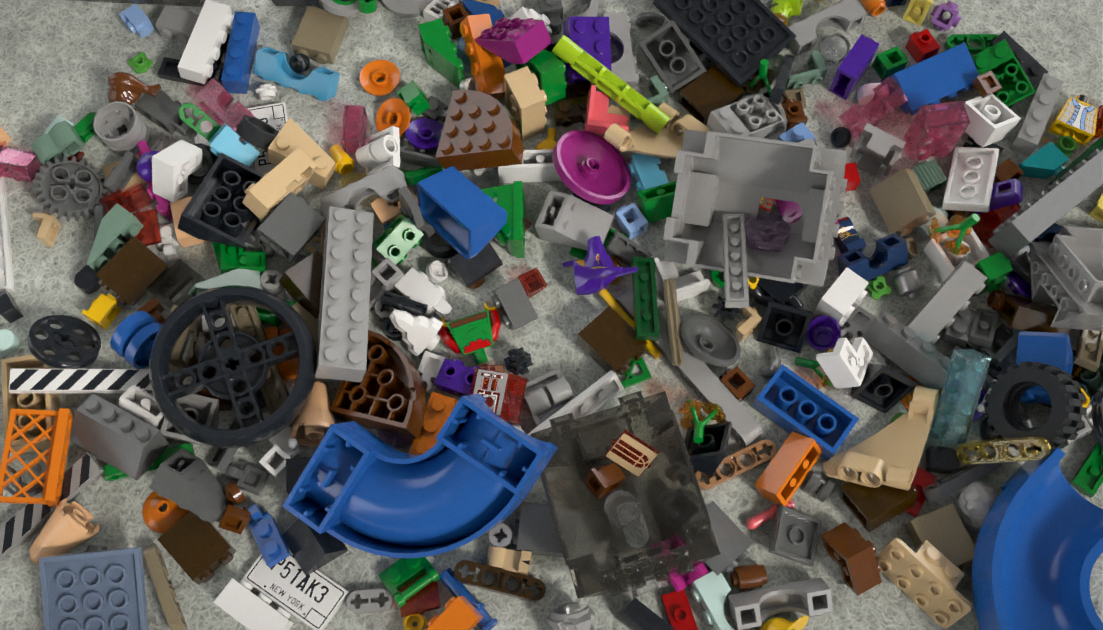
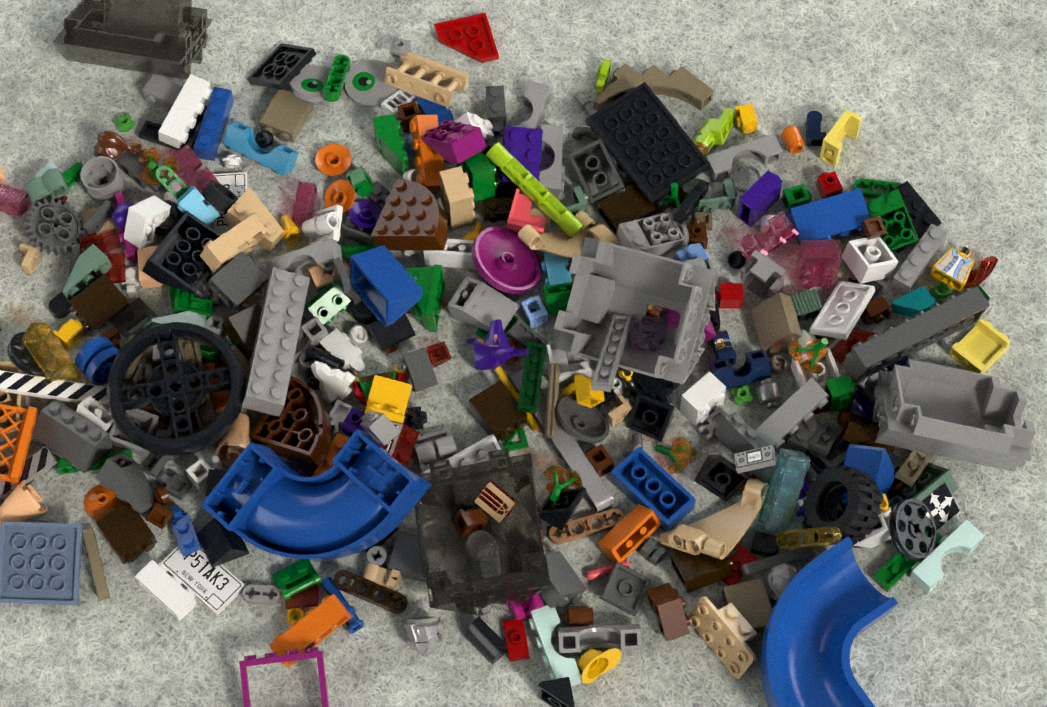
camera: 10 degrees right, 5 degrees down
(79, 339) = (49, 353): none -> clear yellow slope
(137, 21) = (126, 85): light blue brick -> none
(173, 99) = (149, 159): none -> clear orange plant
(485, 345) = (389, 398): none -> yellow bracket
(485, 385) = (379, 426): none -> light grey arch
(709, 305) = (583, 391): none -> yellow brick
(823, 333) = (683, 425): dark purple hair -> none
(846, 363) = (691, 452): white panel -> none
(922, 364) = (755, 459): none -> tile
(938, 19) = (851, 161): medium lavender brick -> none
(1005, 199) = (862, 330): dark purple piece -> none

